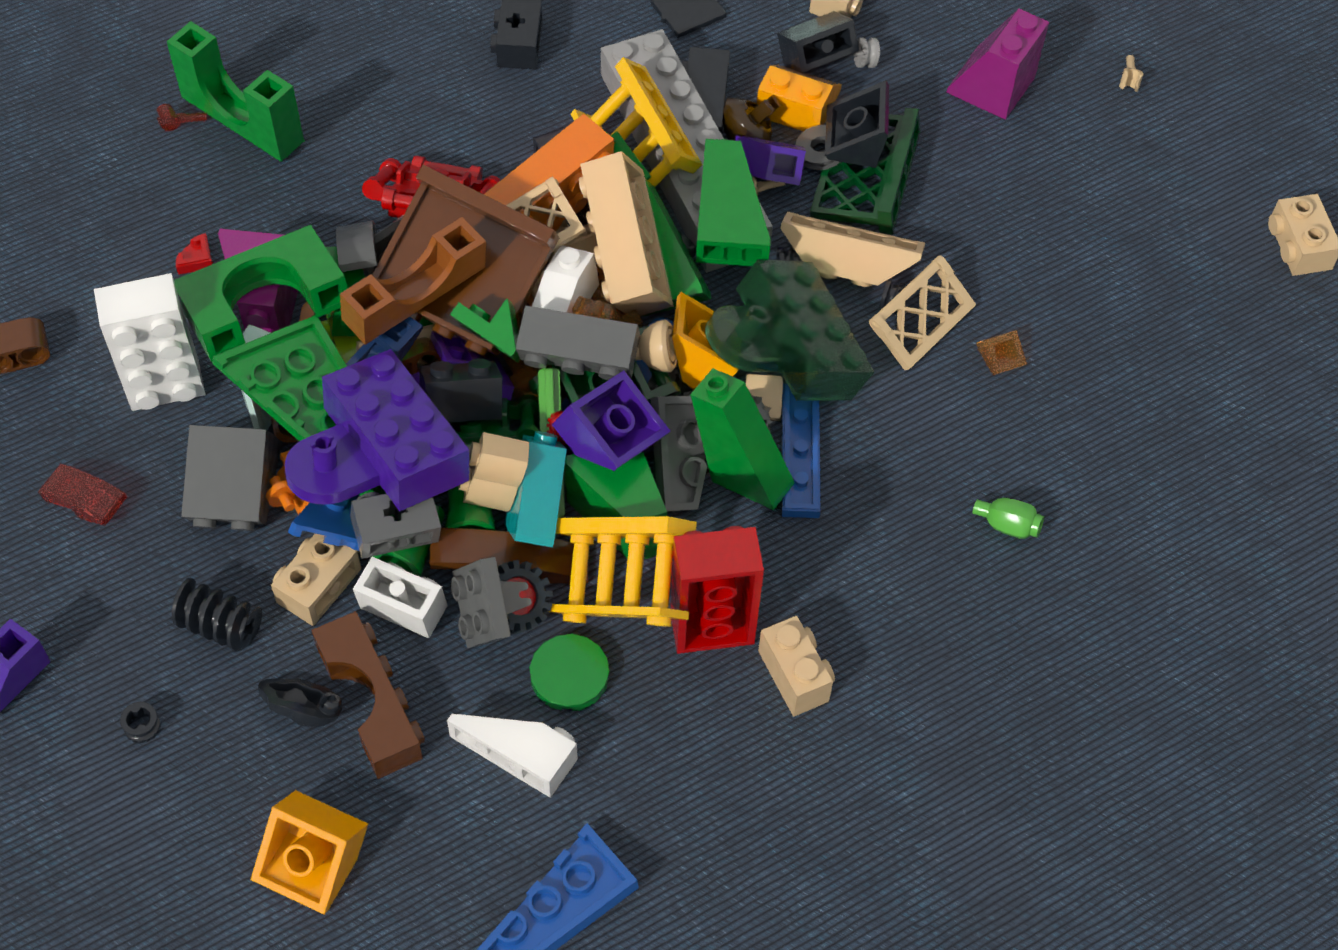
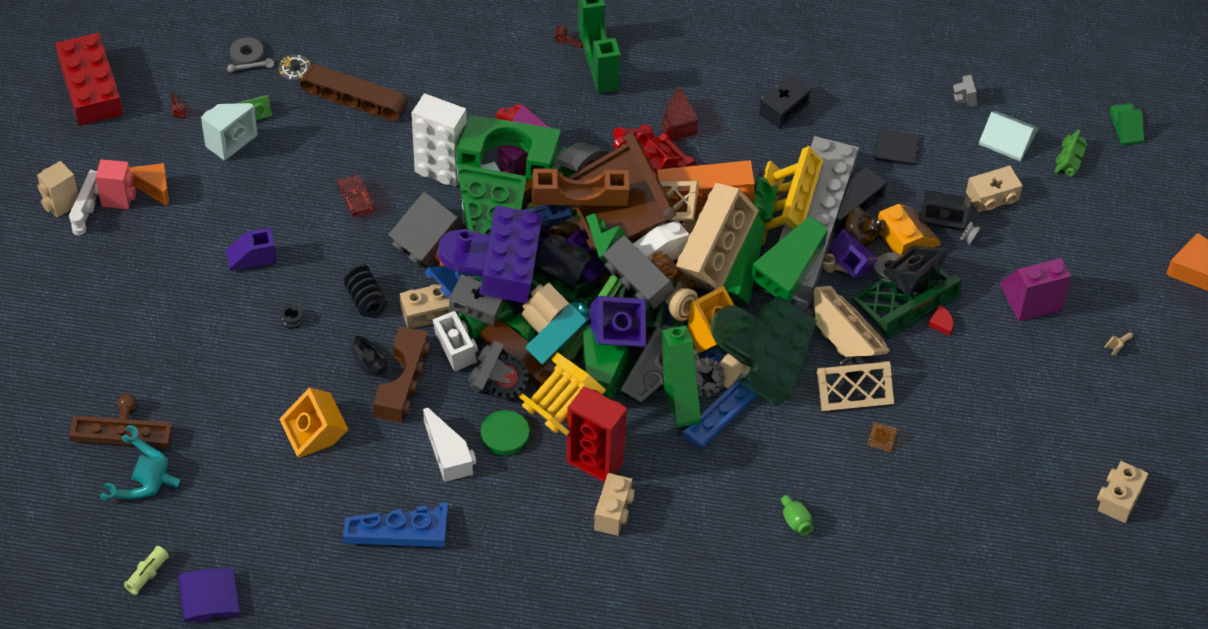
camera: 40 degrees right, 5 degrees down
(413, 125) = (679, 117): none -> clear red slope
(932, 172) = (942, 321): none -> red tile

